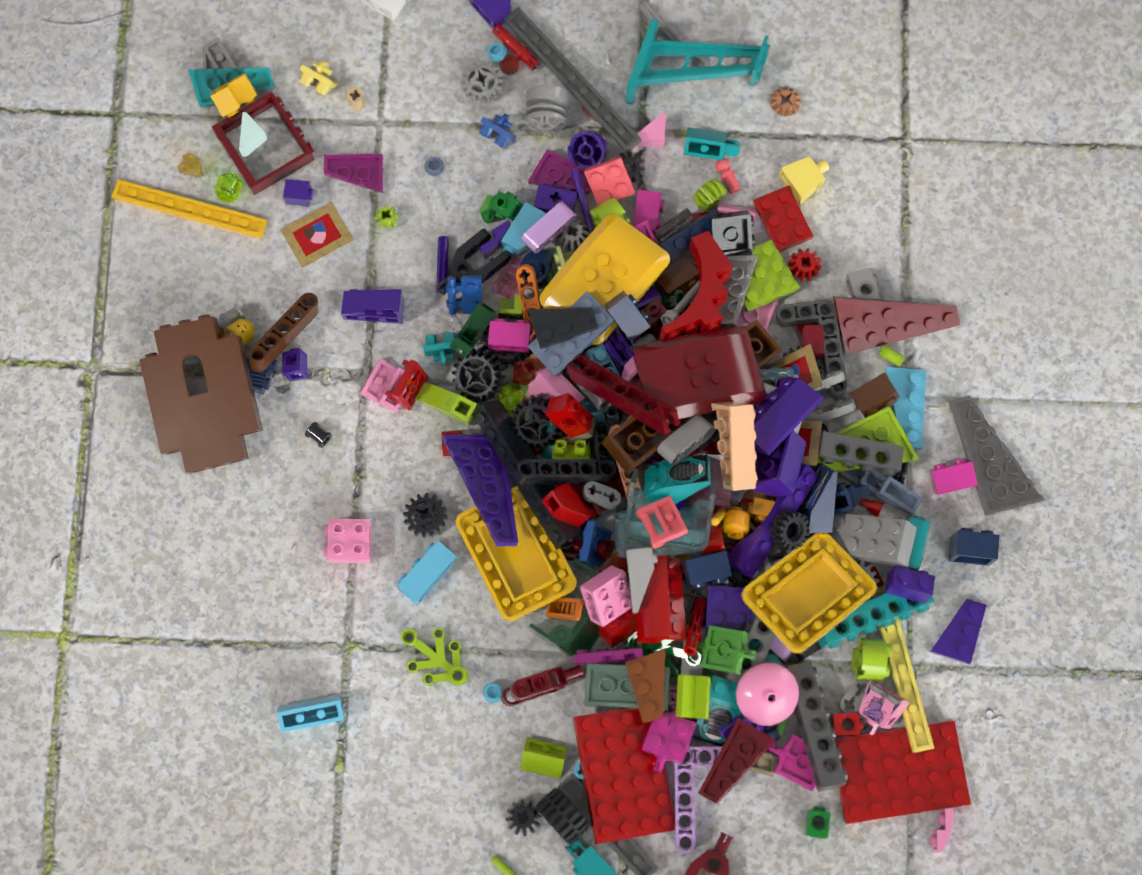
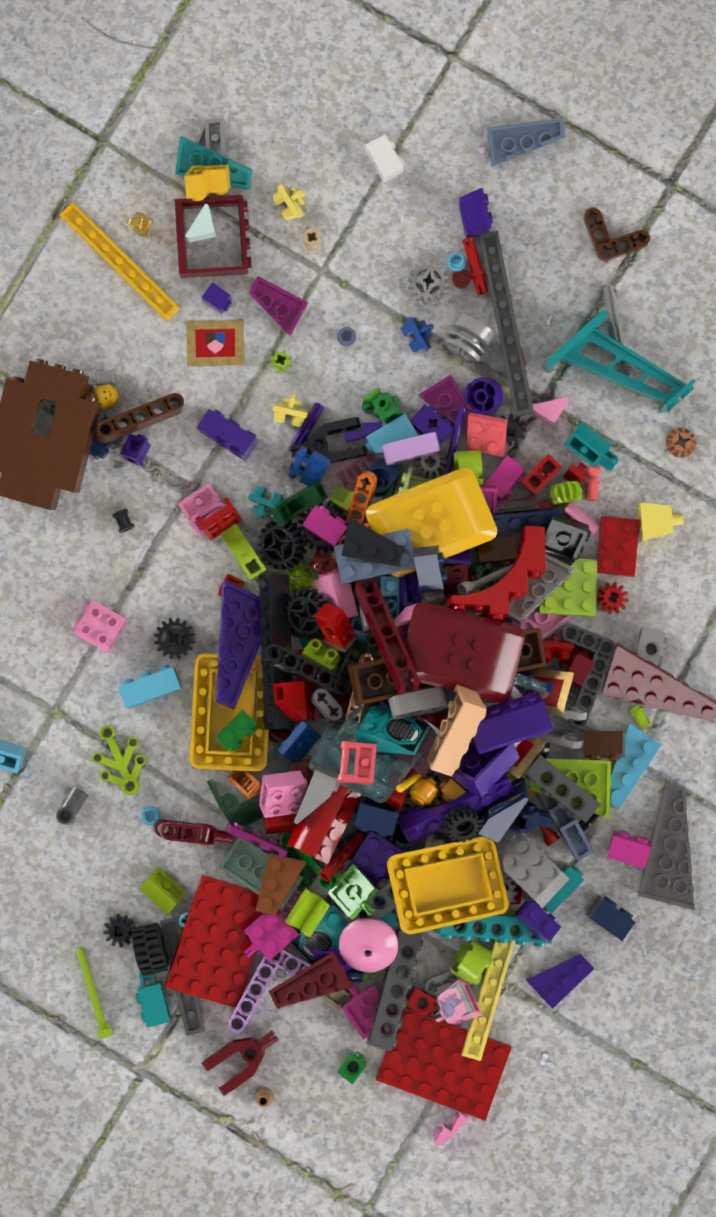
camera: 30 degrees right, 10 degrees up
(228, 187) = (161, 261): clear neon green head -> none
(411, 260) = (298, 414): none -> light yellow hips
(413, 722) = (72, 804): none -> dark grey piece
(531, 564) = (236, 731): none -> green brick
(605, 549) = (306, 749): dark red tile -> none
(678, 191) = (540, 475): none -> red brick
(708, 173) = (575, 473): none -> red tile
(785, 334) = (557, 648): none -> red hips

